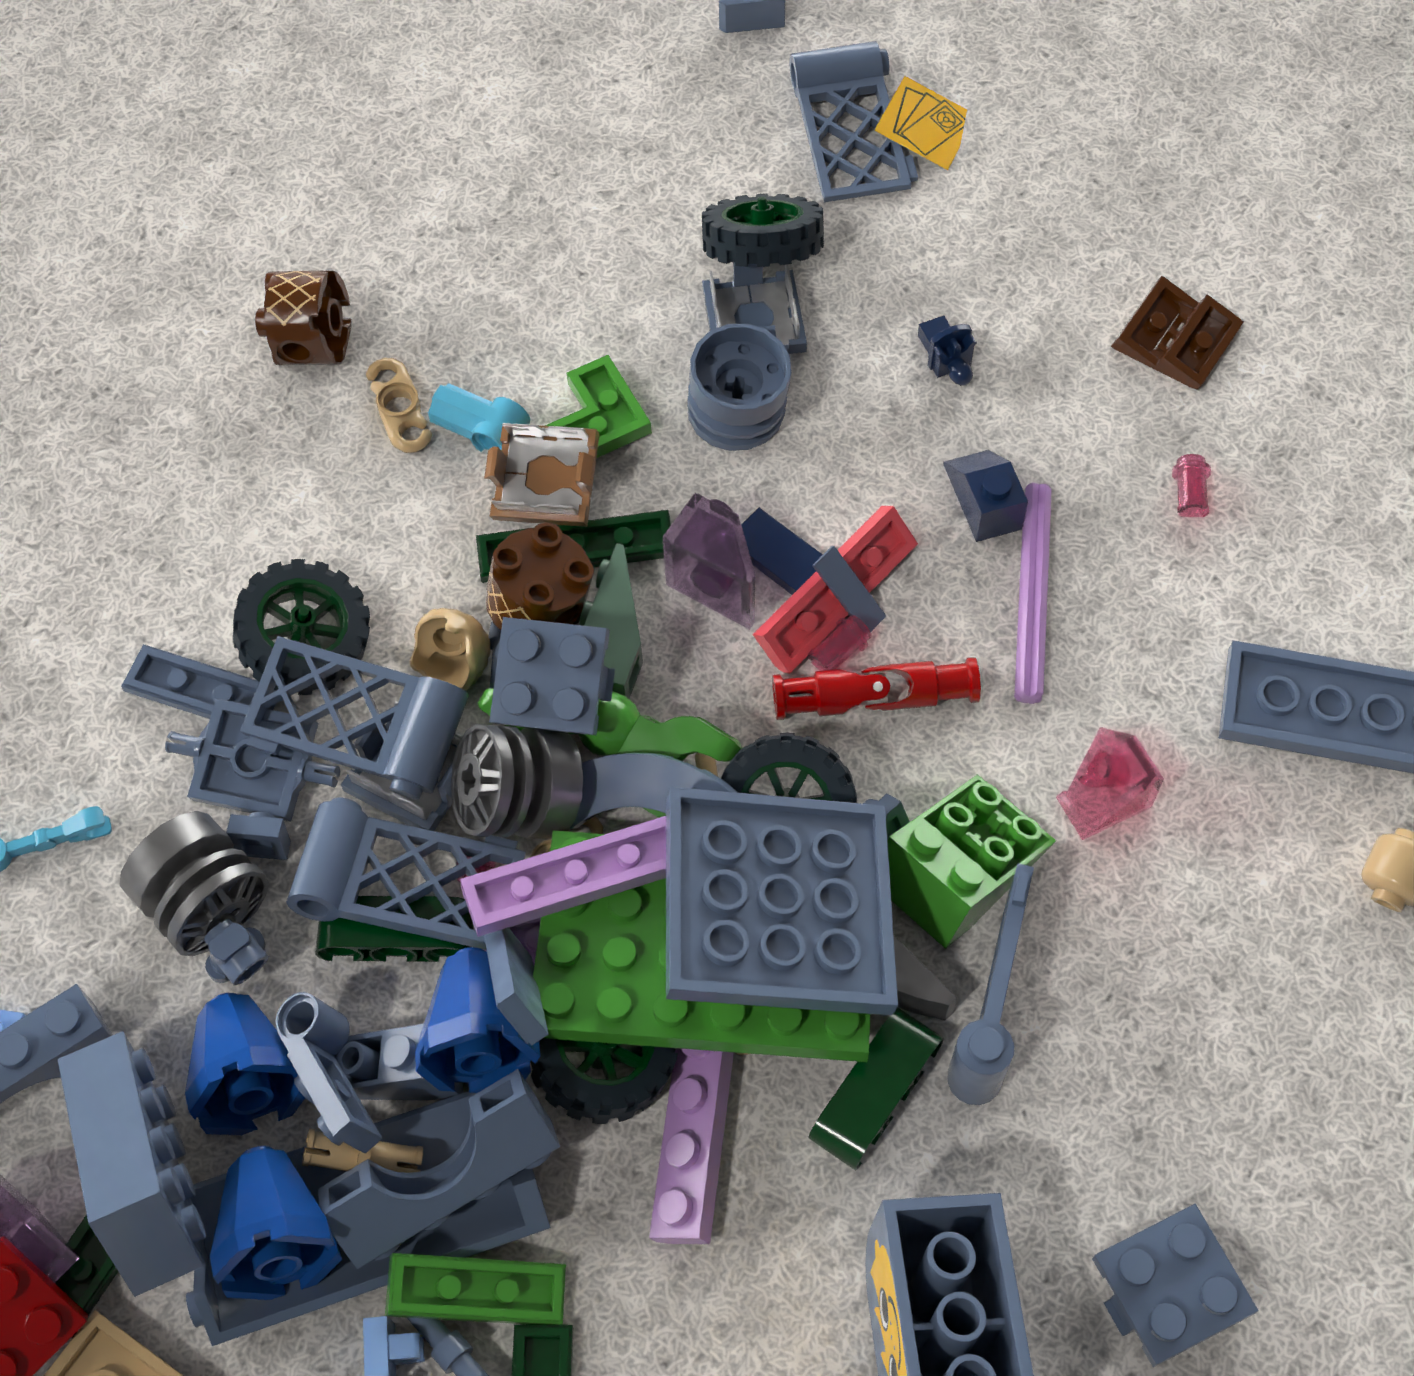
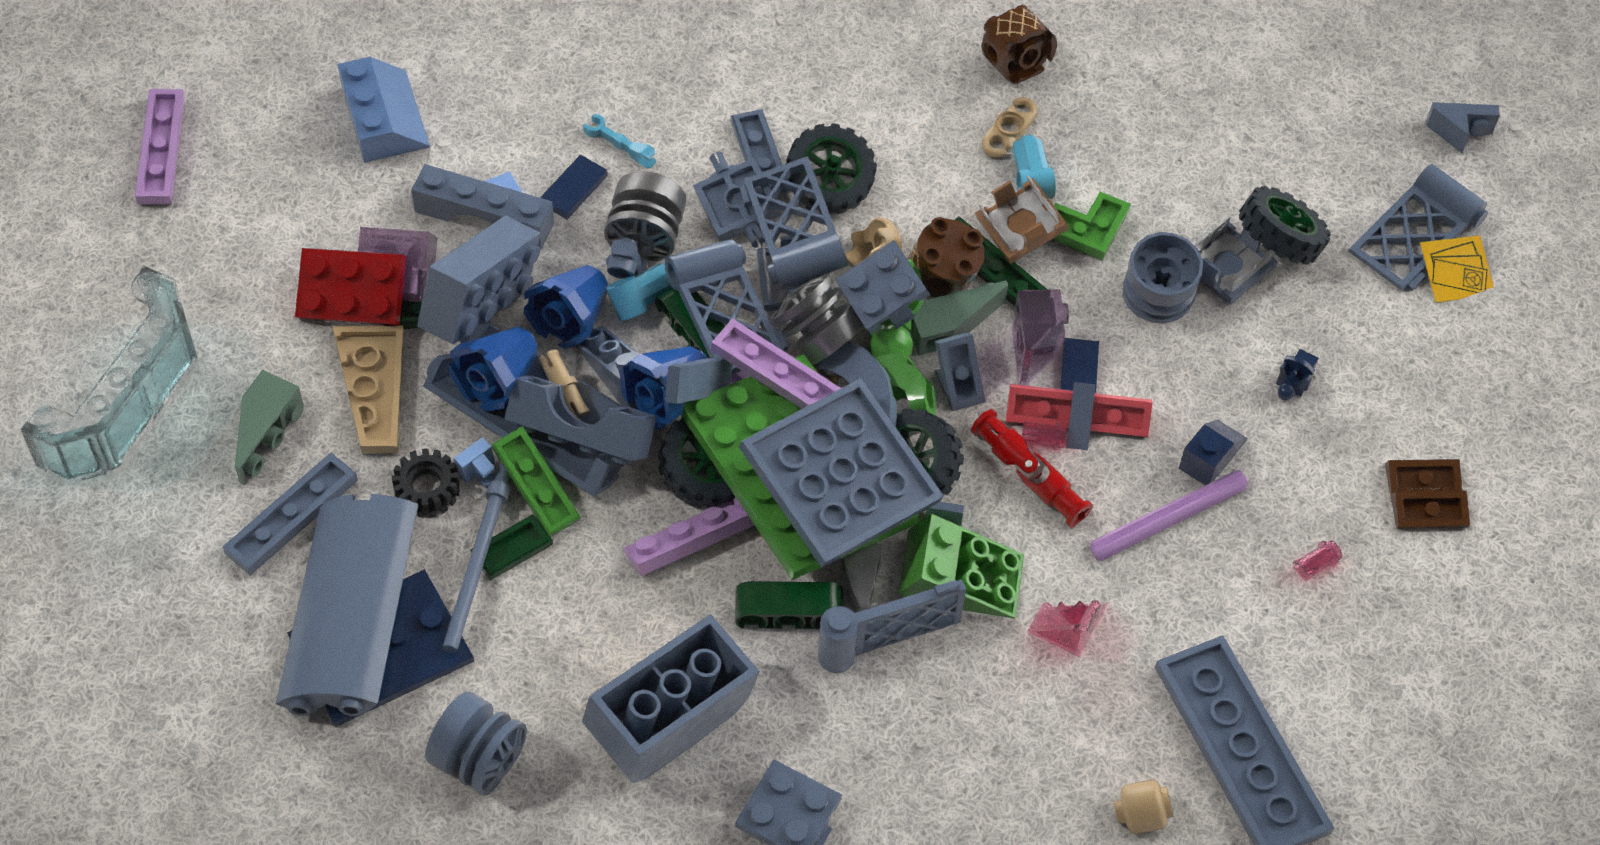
camera: 50 degrees right, 5 degrees down
(61, 941) = (574, 186): none -> dark blue tile
(259, 835) = (696, 229): sand blue plate -> none
(290, 960) = (634, 293): none -> medium azure piece
(313, 1038) = (602, 321): sand blue plate -> none
(694, 676) = (959, 371): none -> sand blue slope

